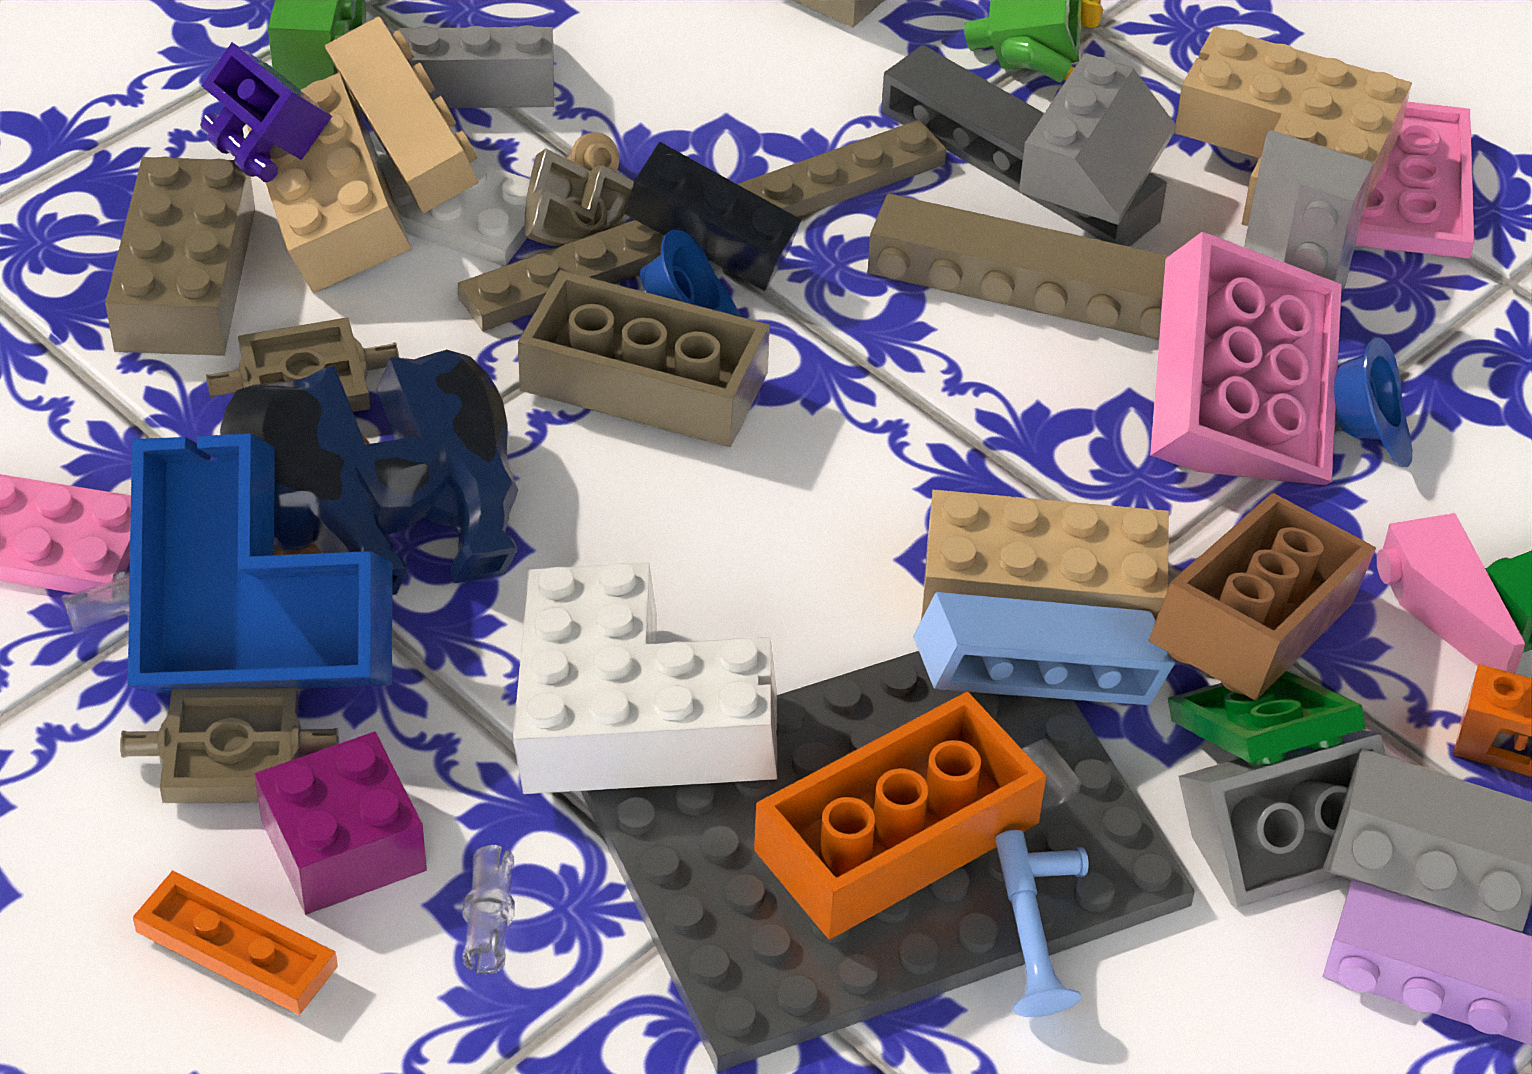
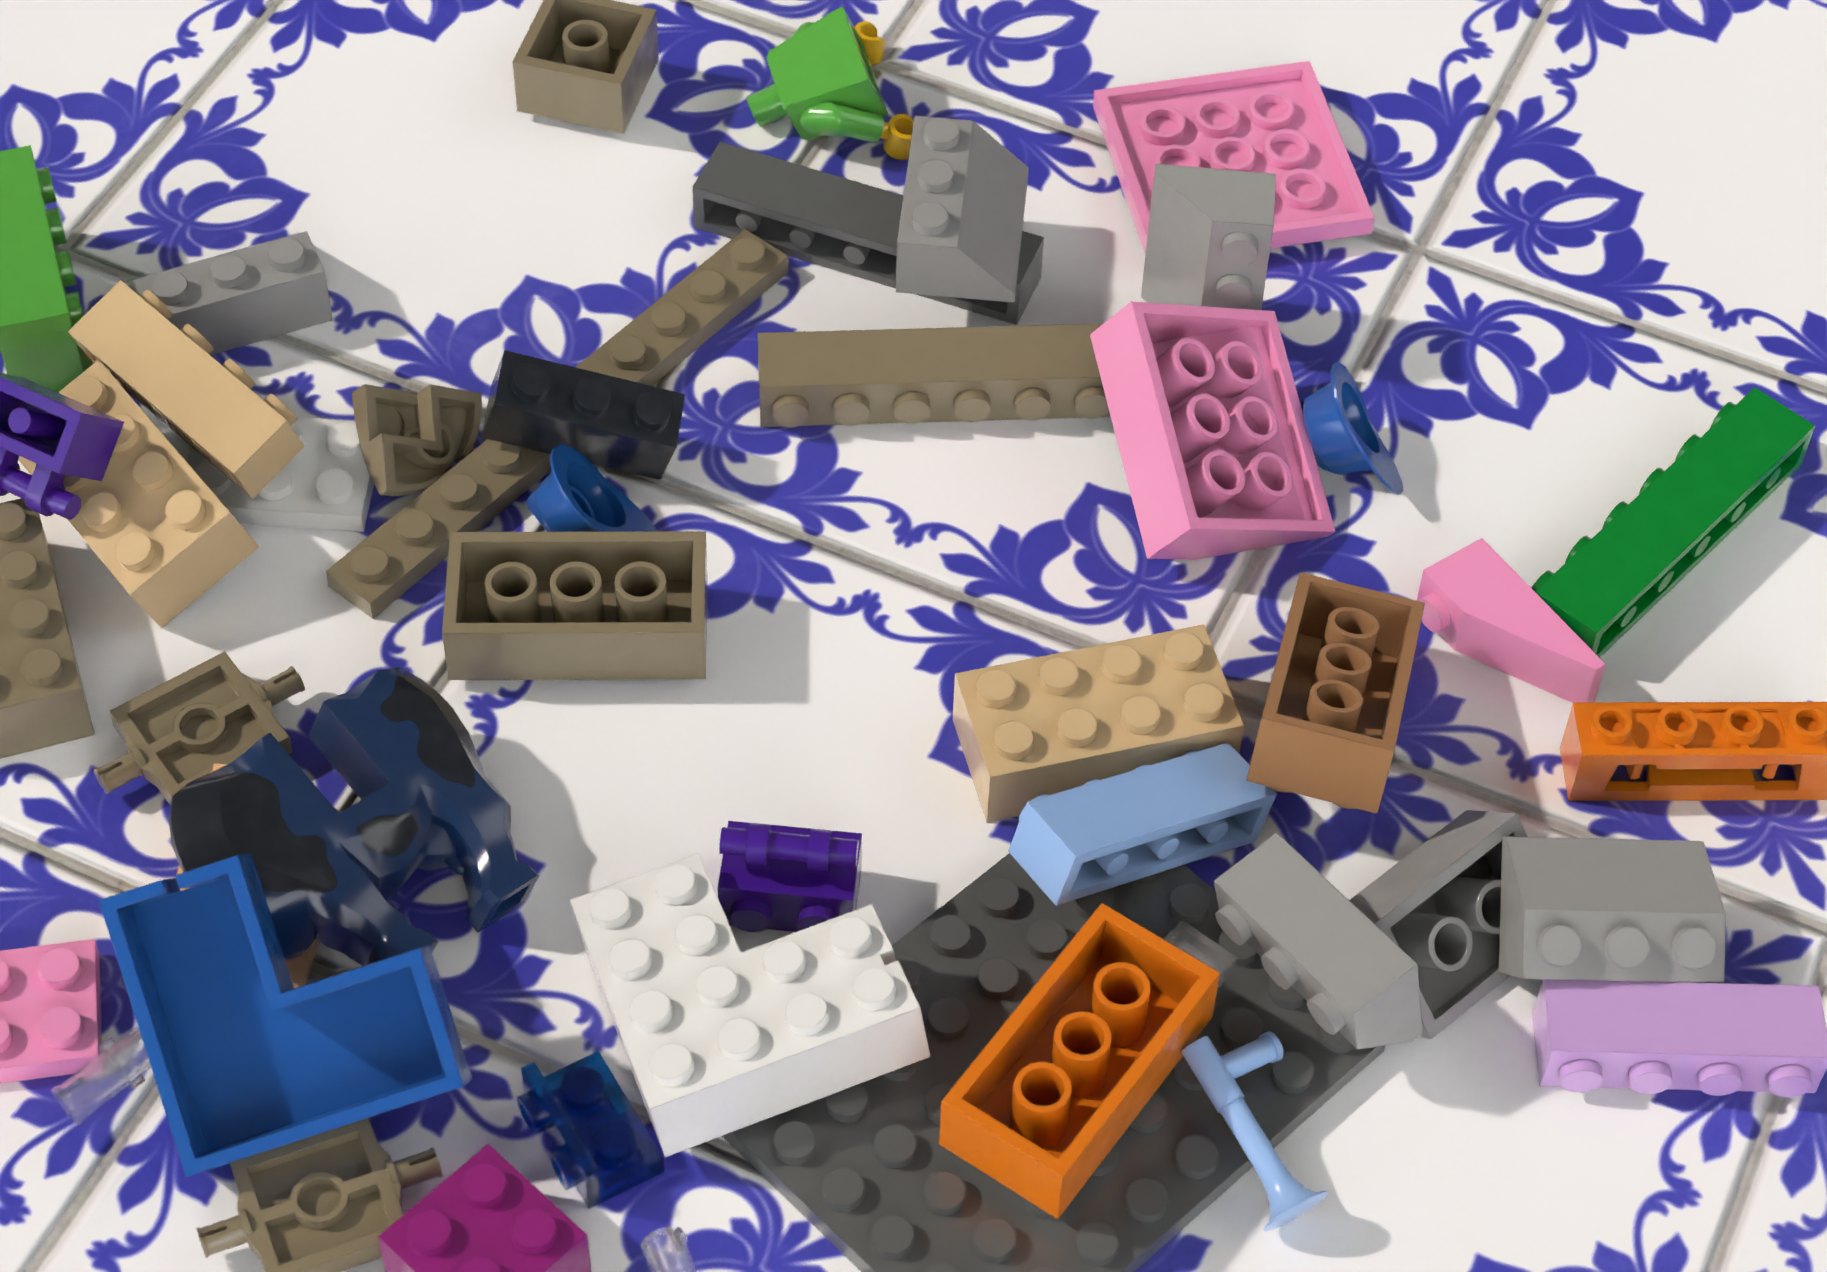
camera: 20 degrees left, 5 degrees up
(476, 756) = (591, 1127): none -> clear blue bracket
(593, 150) = (410, 370): tan plate -> none
(723, 602) = (787, 875): none -> dark purple brick
(1155, 791) = (1320, 946): none -> light grey slope
(1255, 85) = (1138, 108): tan piece -> none
(1282, 719) = (1411, 836): green plate -> none

